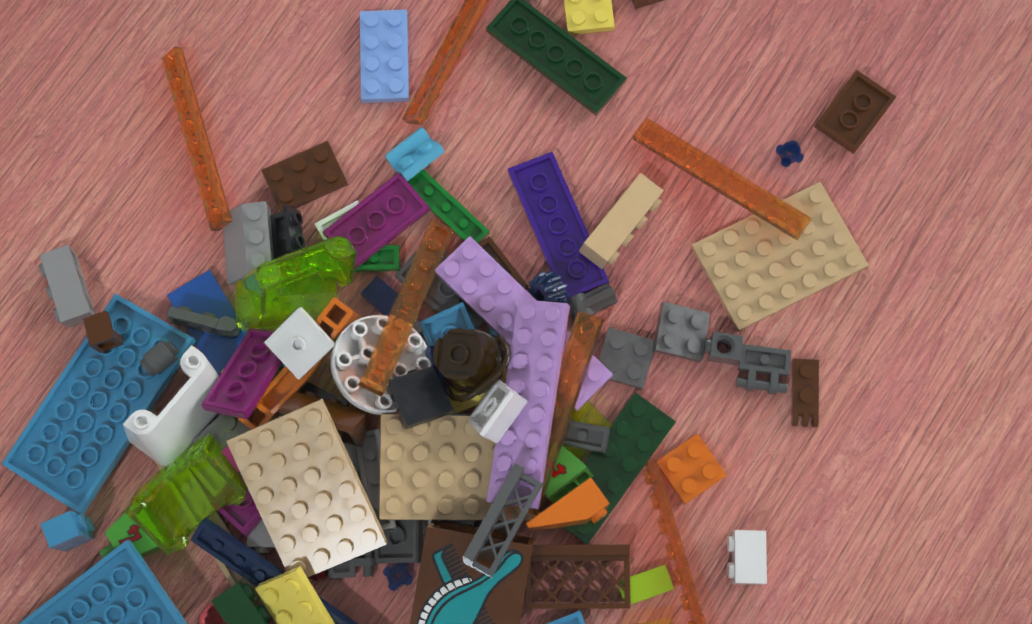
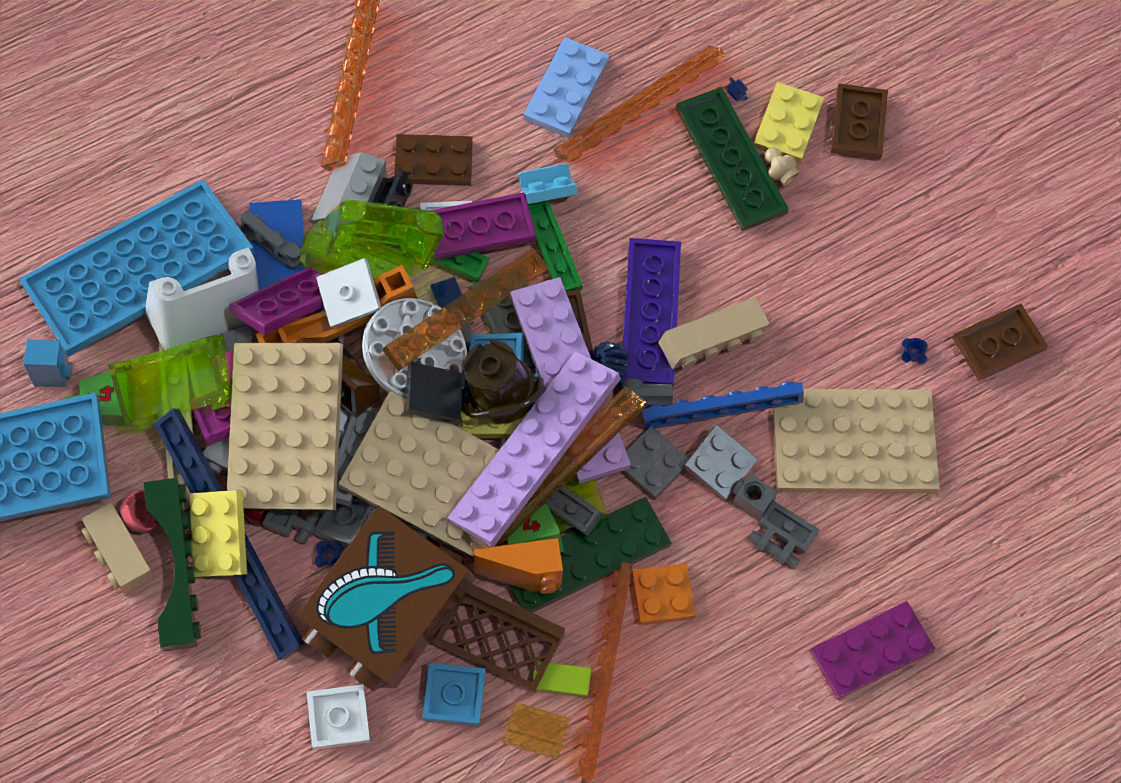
camera: 20 degrees right, 10 degrees down
(66, 286) = (162, 153): light grey brick -> none
(101, 333) = (171, 204): reddish brown panel -> none
(159, 357) = (213, 248): dark grey brick -> none
(492, 517) = (443, 524): dark grey fence -> none
(497, 411) = (501, 440): white slope -> none
(603, 44) = (782, 167): none -> tan animal
(667, 276) = (730, 404): none -> blue plate
(722, 179) = (833, 341): clear orange plate -> none
(747, 557) = (675, 700): white brick -> none
(805, 391) = (814, 576): reddish brown hinge -> none
(882, 431) = (872, 650): none -> magenta plate

